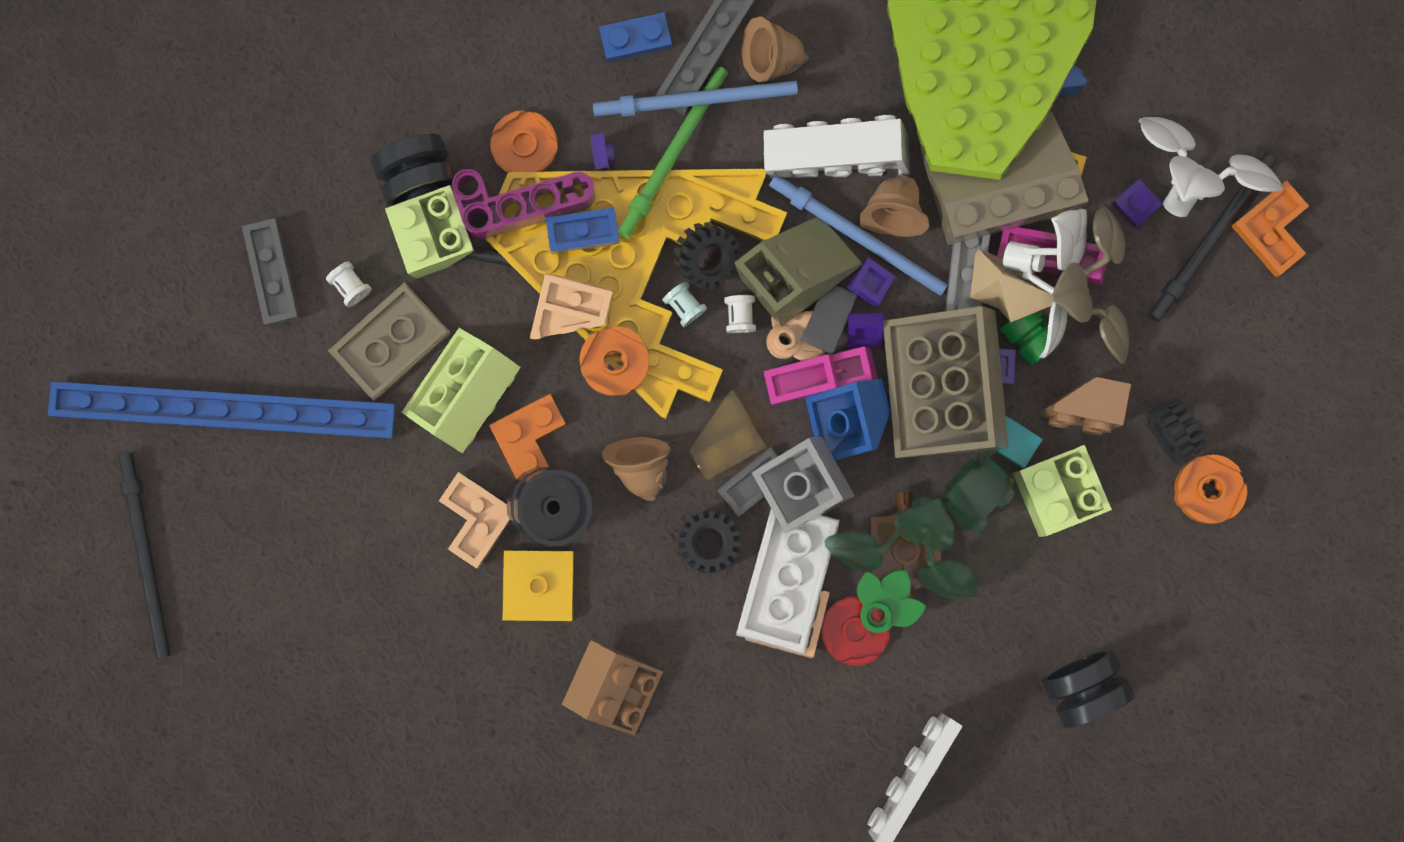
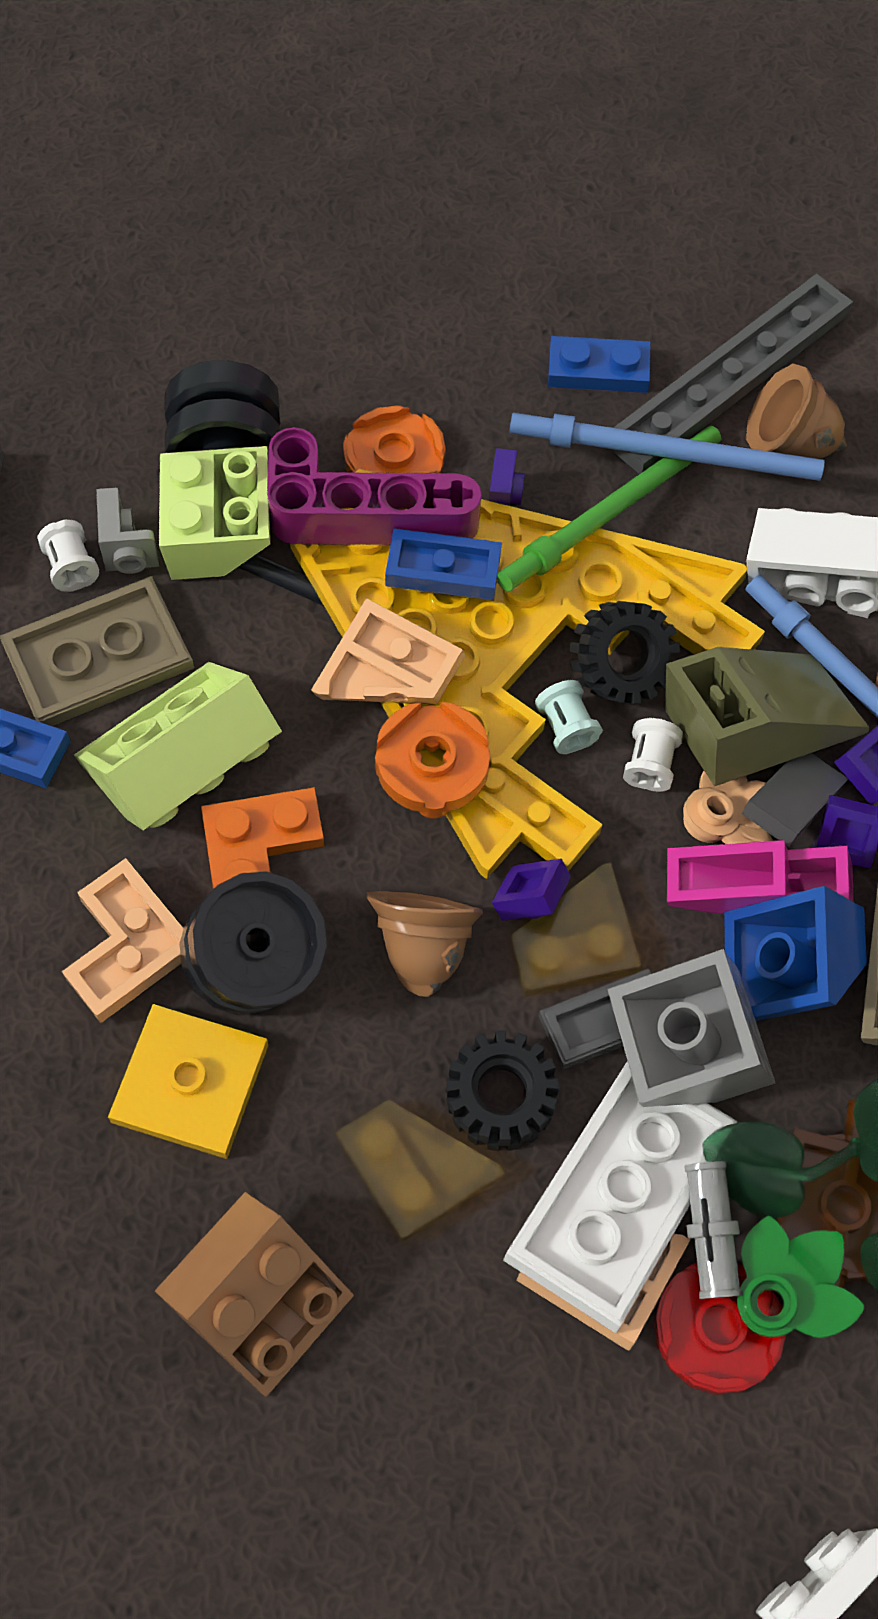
camera: 15 degrees right, 20 degrees down
(371, 256) = (119, 543): none -> light grey bracket
(673, 596) = (414, 1167): none -> clear yellow wing
(693, 422) = (531, 890): none -> dark purple plate
(839, 587) = (713, 1230): none -> light grey pin

